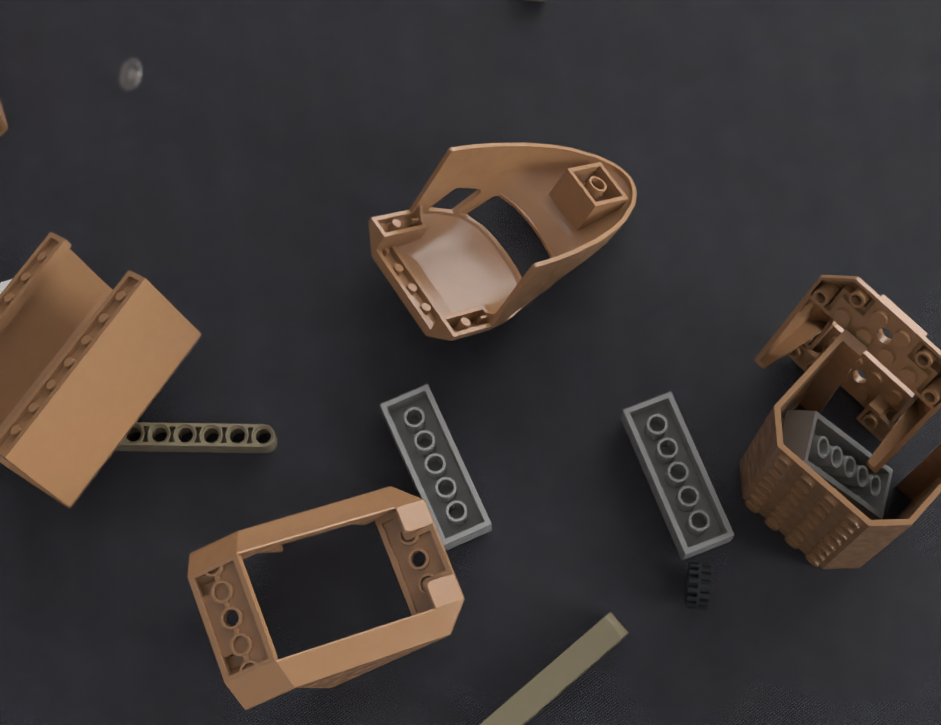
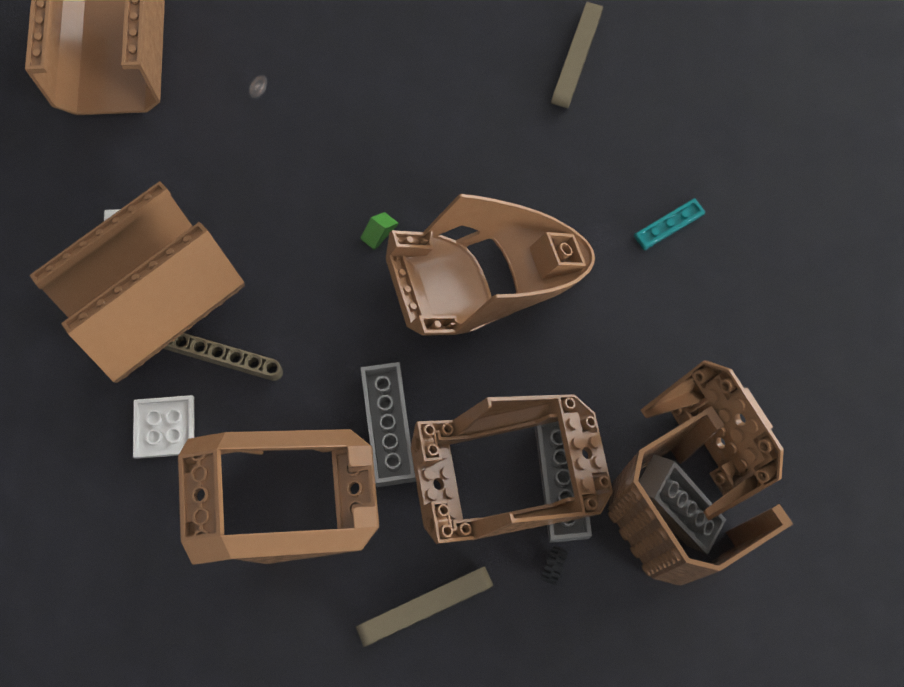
camera: 15 degrees right, 0 degrees up
(143, 550) = (162, 426): none -> white plate
(346, 222) = (378, 229): none -> bright green slope
(576, 417) = (495, 416): none -> medium nougat piece
(716, 118) = (669, 224): none -> teal tile

